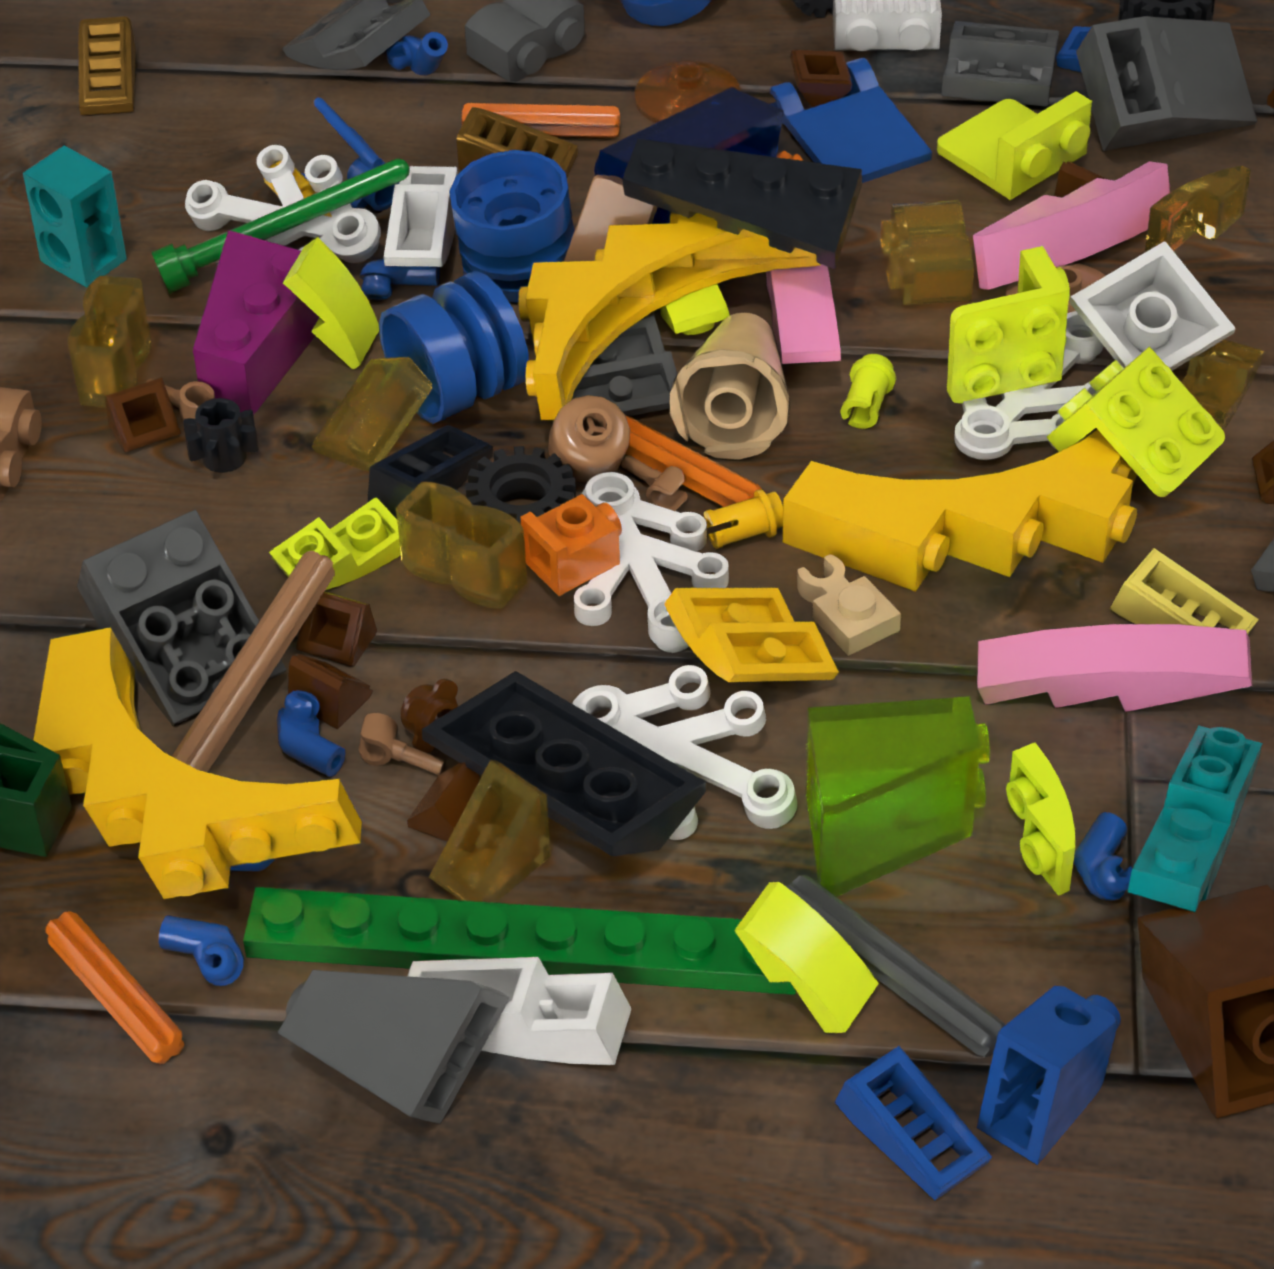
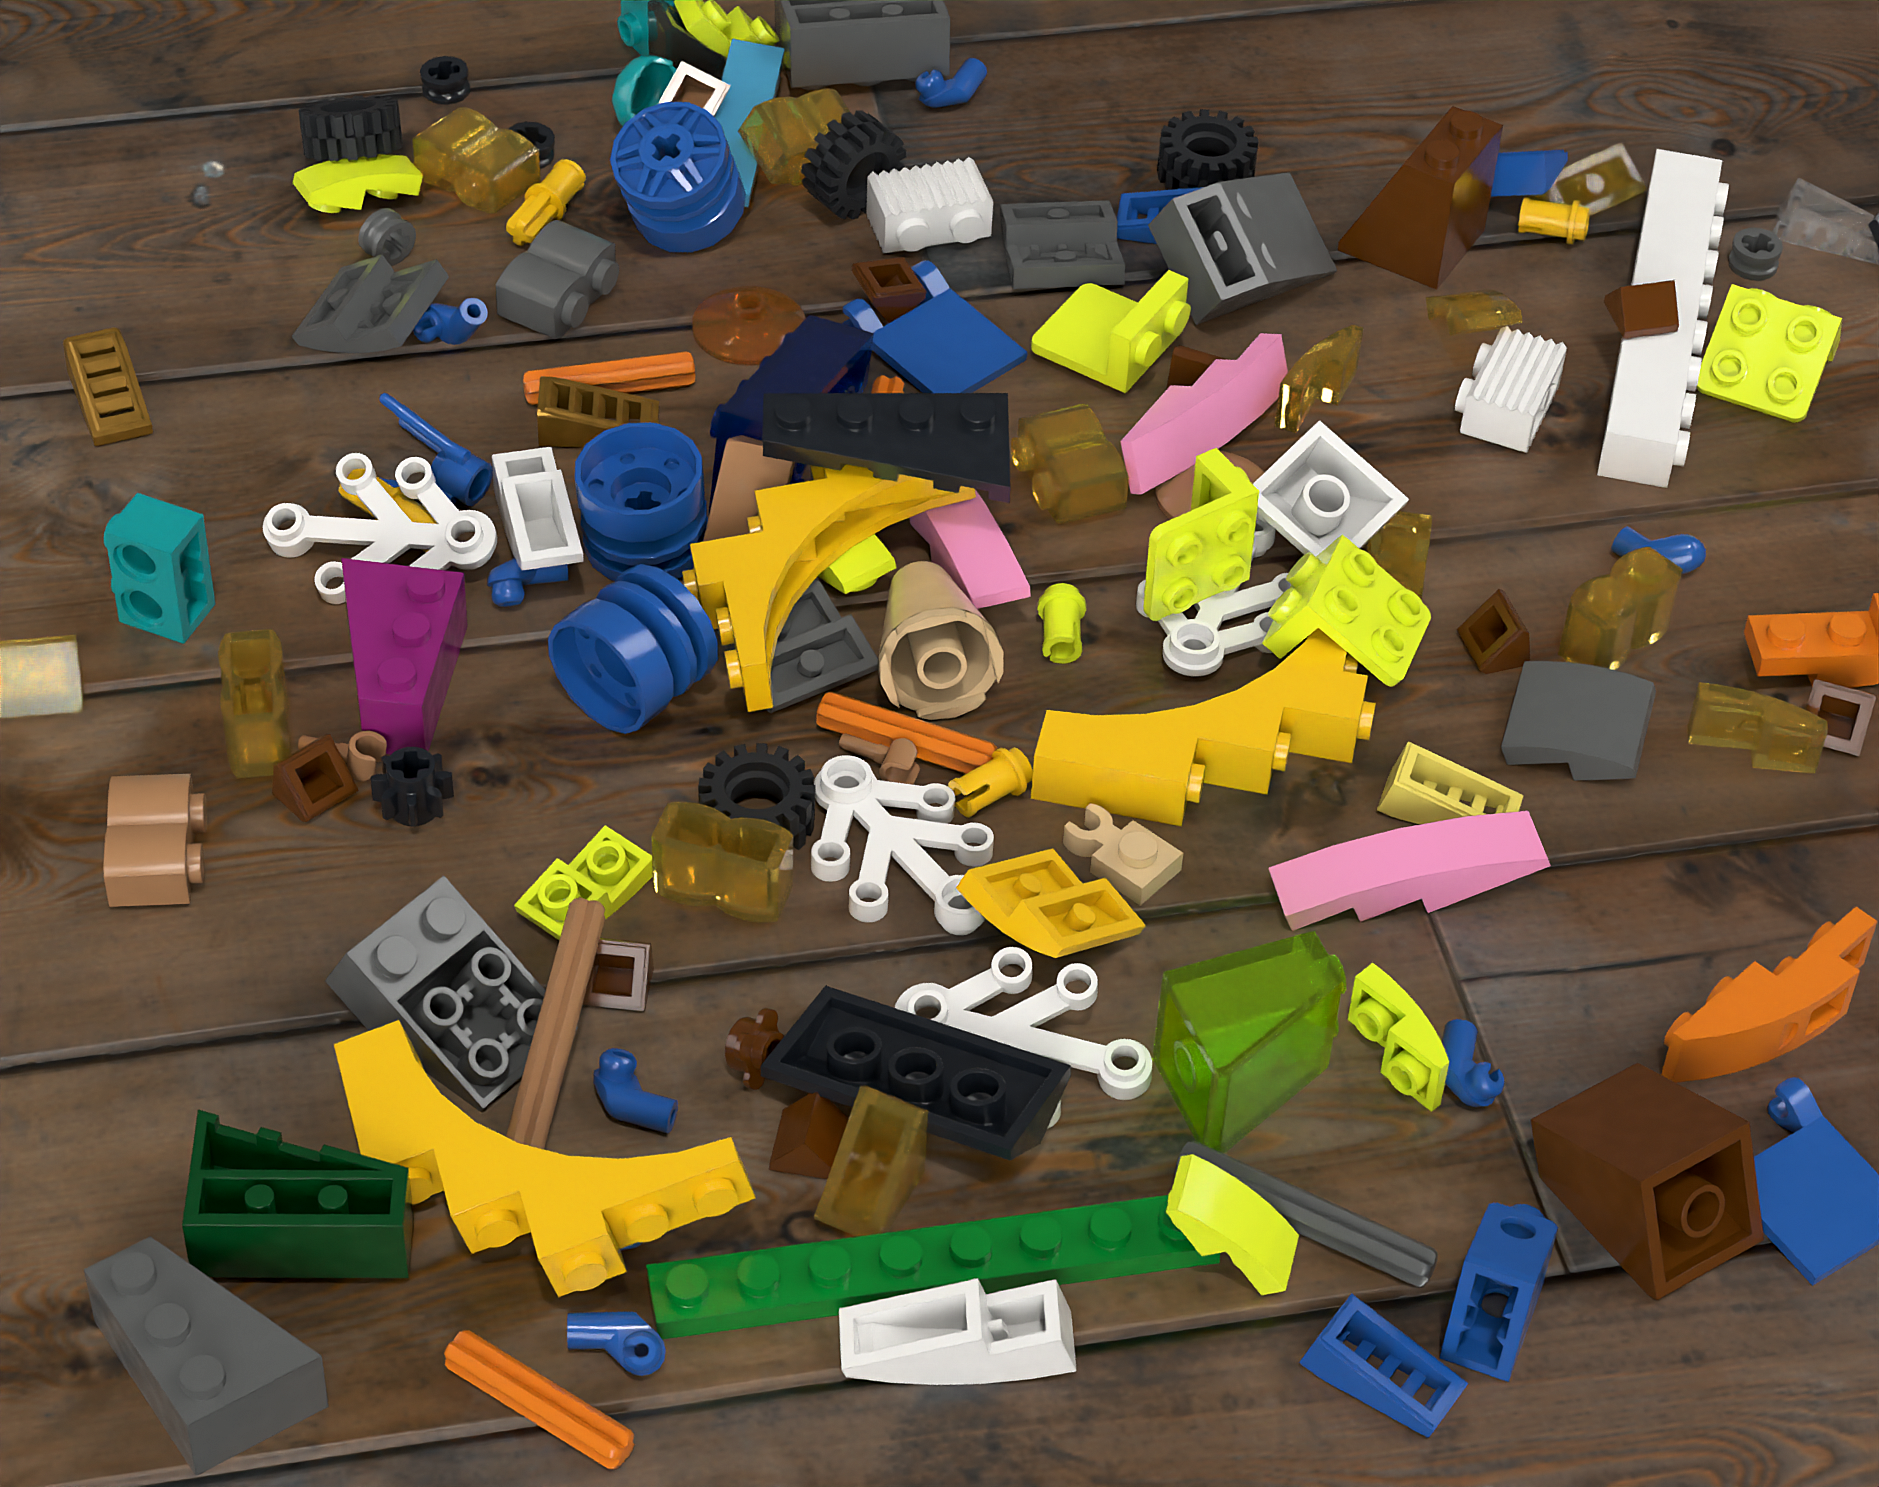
camera: 20 degrees left, 0 degrees up
(181, 264) = (288, 601): green piece -> none
(330, 291) = (482, 610): neon yellow slope -> none
(336, 690) = (644, 1039): reddish brown slope -> none
(374, 412) = (562, 733): clear yellow slope -> none
(380, 745) = (710, 1091): medium nougat hand -> none
(395, 1033) = (858, 1385): dark grey slope -> none
(424, 461) = (637, 792): black slope -> none
(572, 543) = (841, 829): orange brick -> none
(590, 436) = (809, 722): medium nougat head -> none
(1197, 819) = (1543, 1009): teal slope -> none

